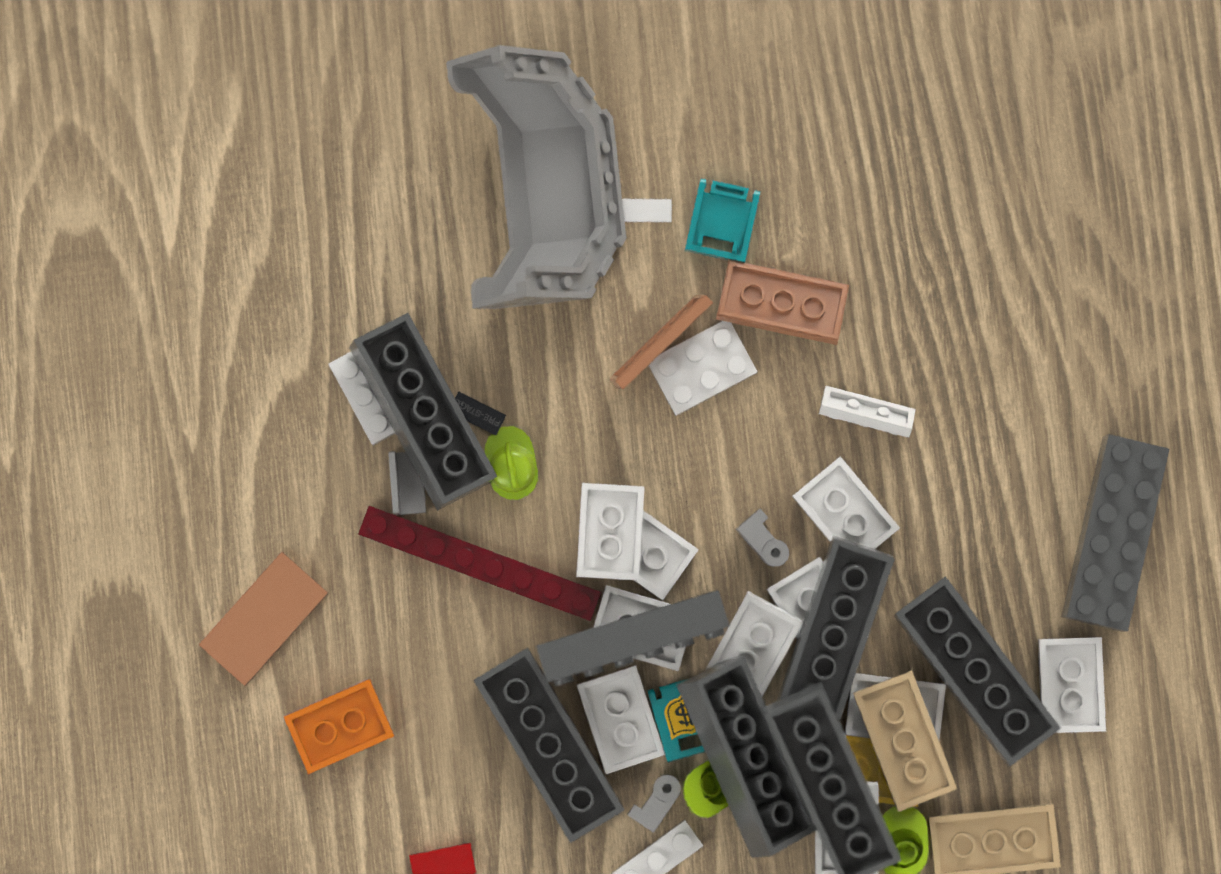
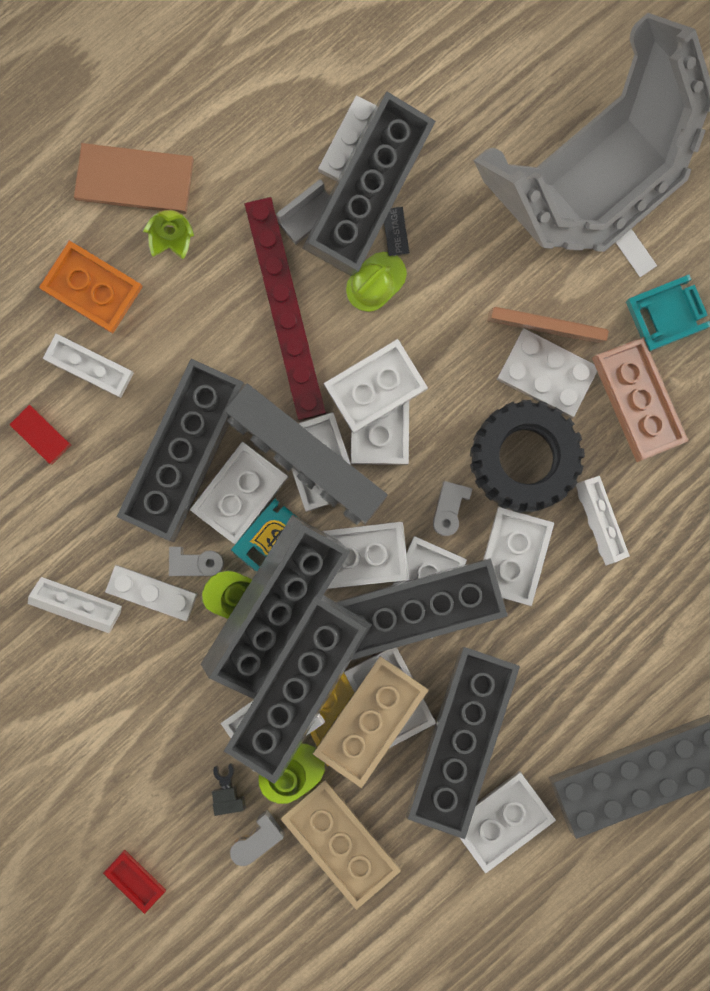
camera: 50 degrees right, 0 degrees up
(337, 618) = (164, 237): none -> lime piece
(410, 777) = (88, 365): none -> white plate
(771, 398) = (561, 440): none -> black tyre

